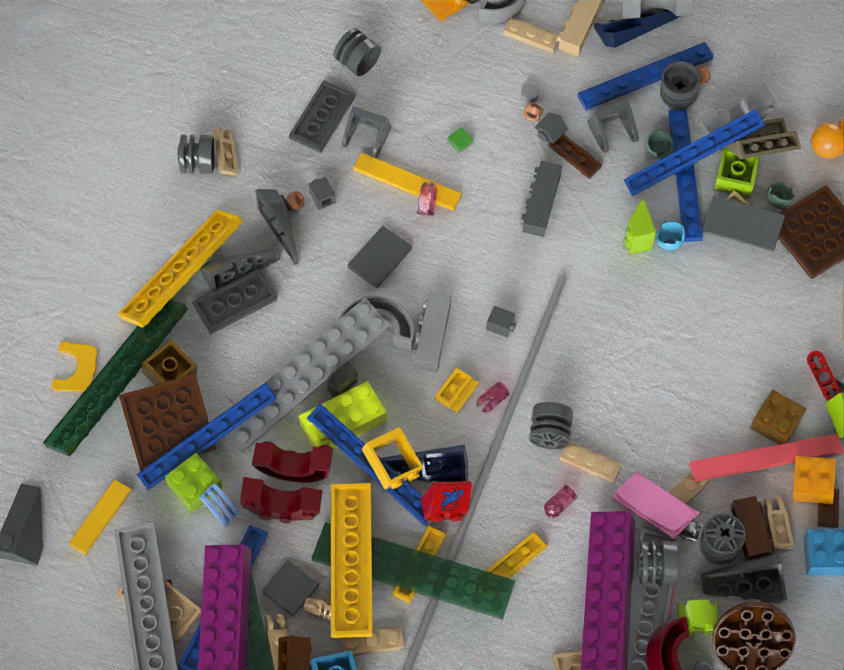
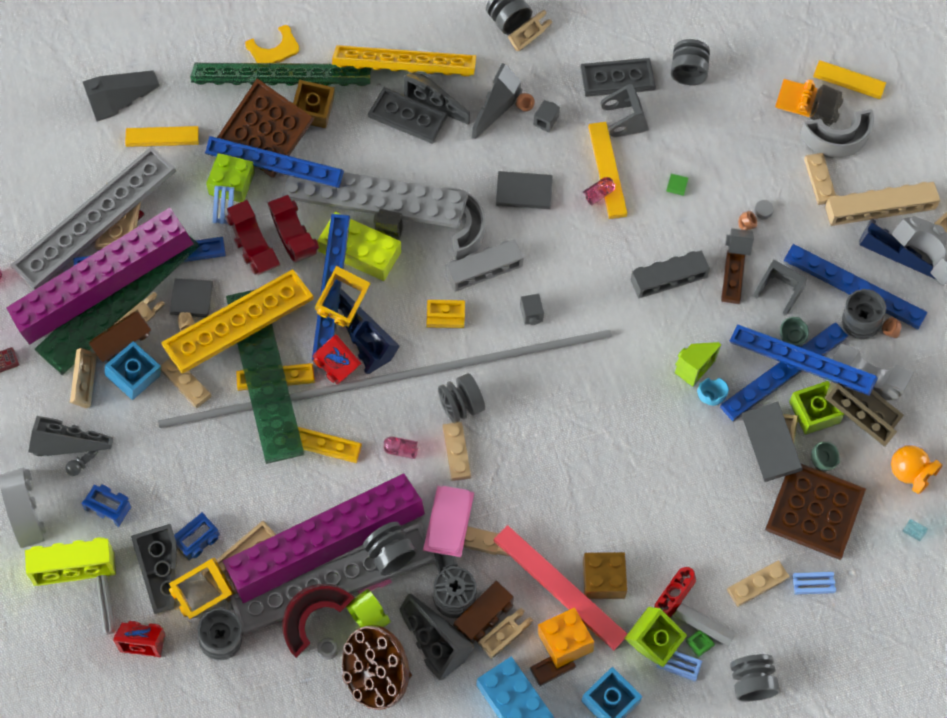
camera: 55 degrees right, 0 degrees up
(494, 395) = (458, 343): clear pink piece -> none

